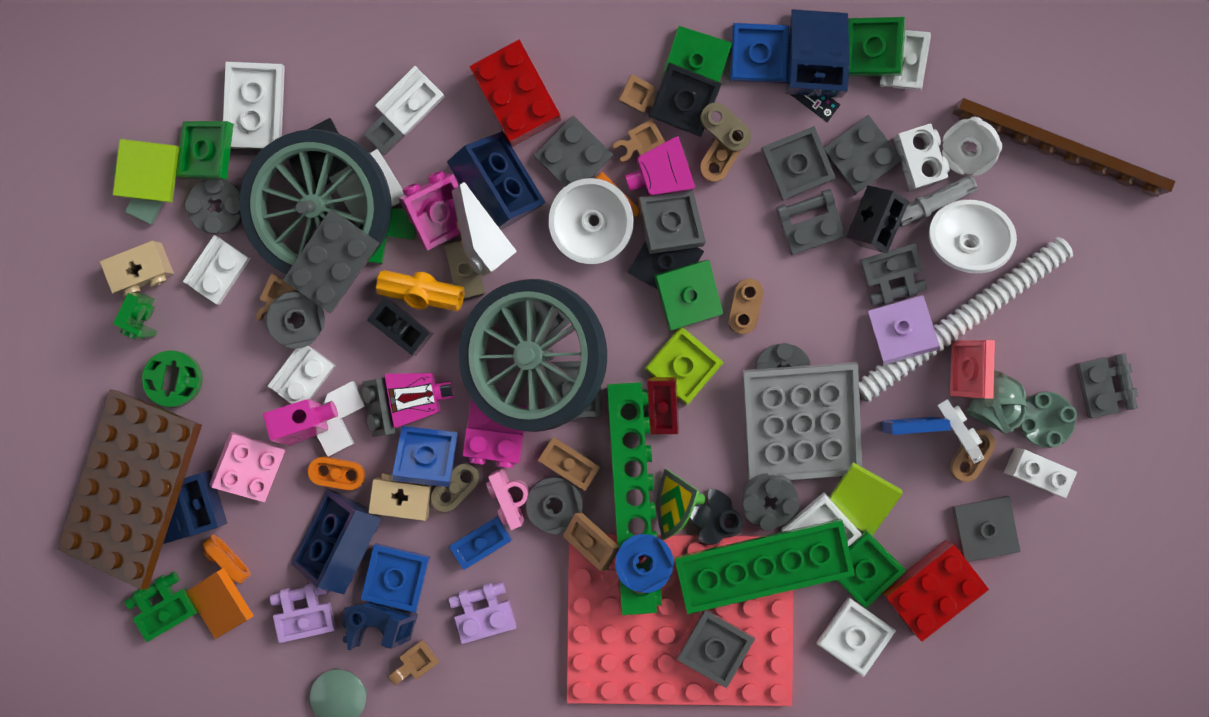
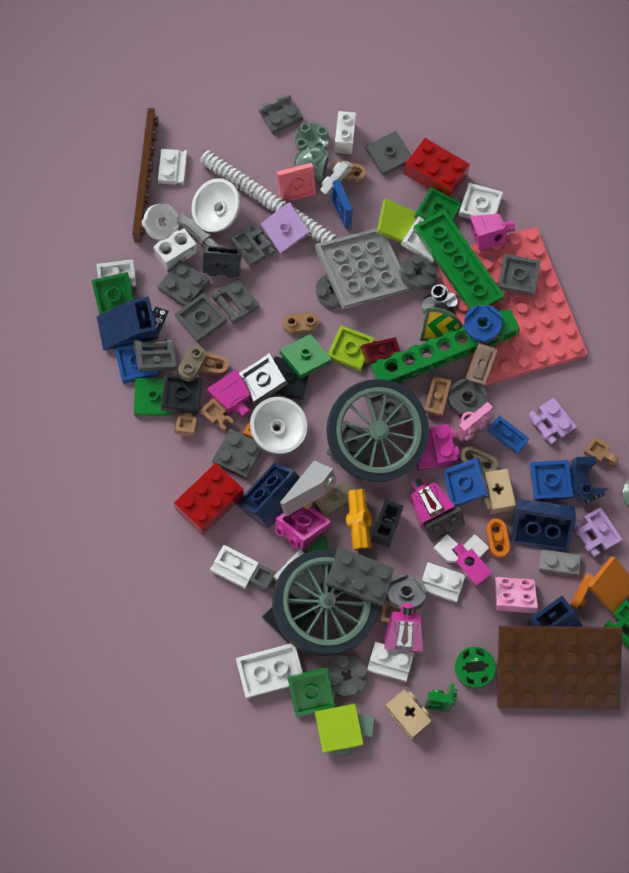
camera: 110 degrees left, 20 degrees down
(243, 298) = (404, 630): none -> dark pink torso
(278, 545) = (559, 562): none -> light grey plate
(749, 75) = (155, 360): none -> dark grey plate
(802, 632) = (490, 230): none -> dark pink torso
(1064, 194) = (172, 166): none -> white plate

